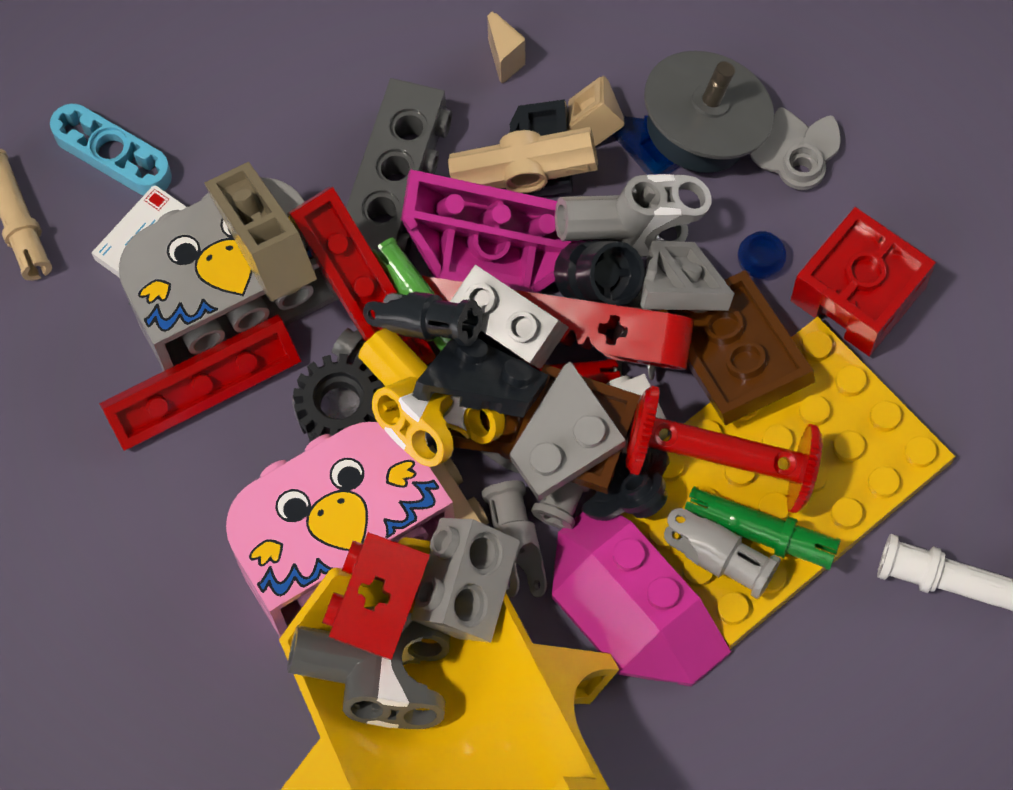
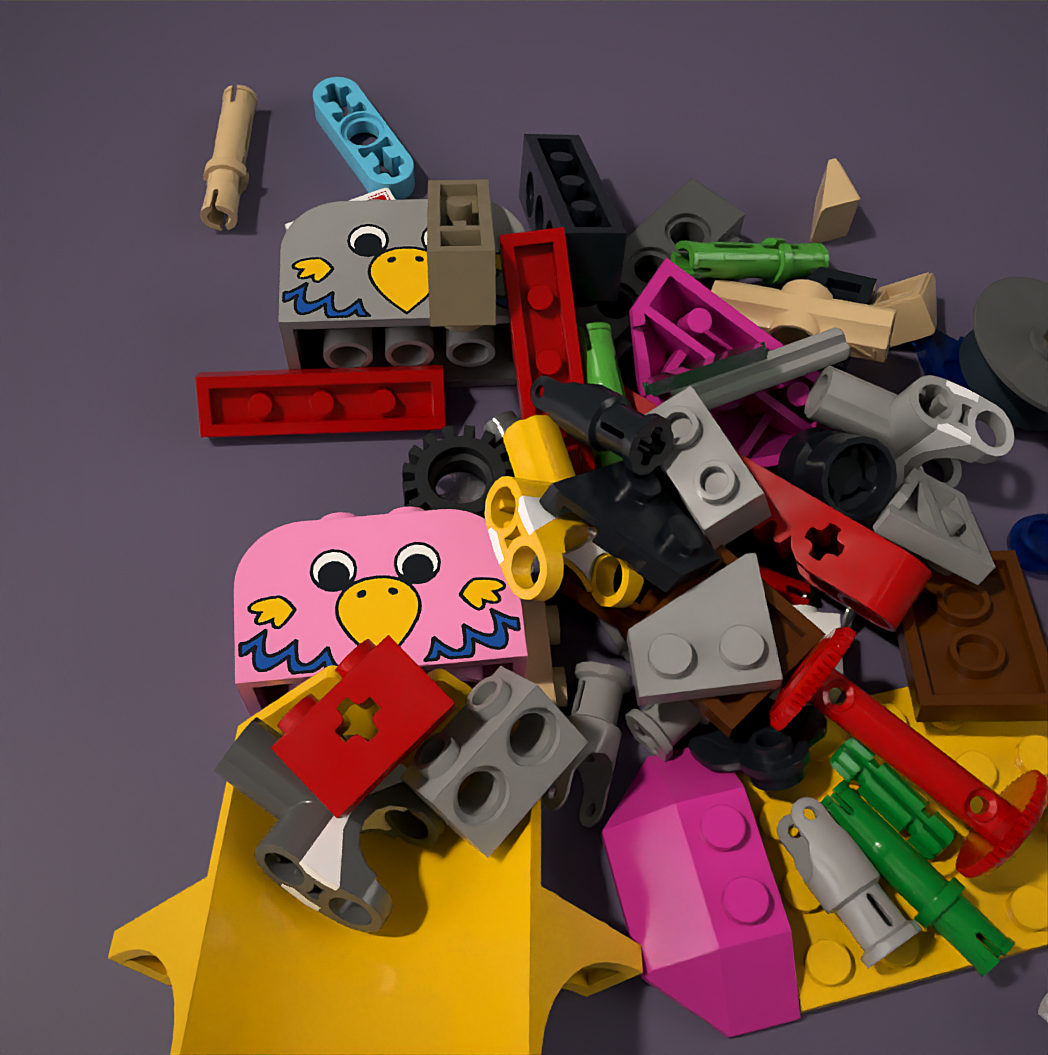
camera: 20 degrees right, 5 degrees down
(316, 152) = (565, 191): none -> black brick
(477, 243) = (705, 368): none -> piece
(479, 119) = (768, 260): none -> bright green pin
(516, 221) = (779, 367): none -> light grey axle
(731, 483) = (894, 798): none -> green axle

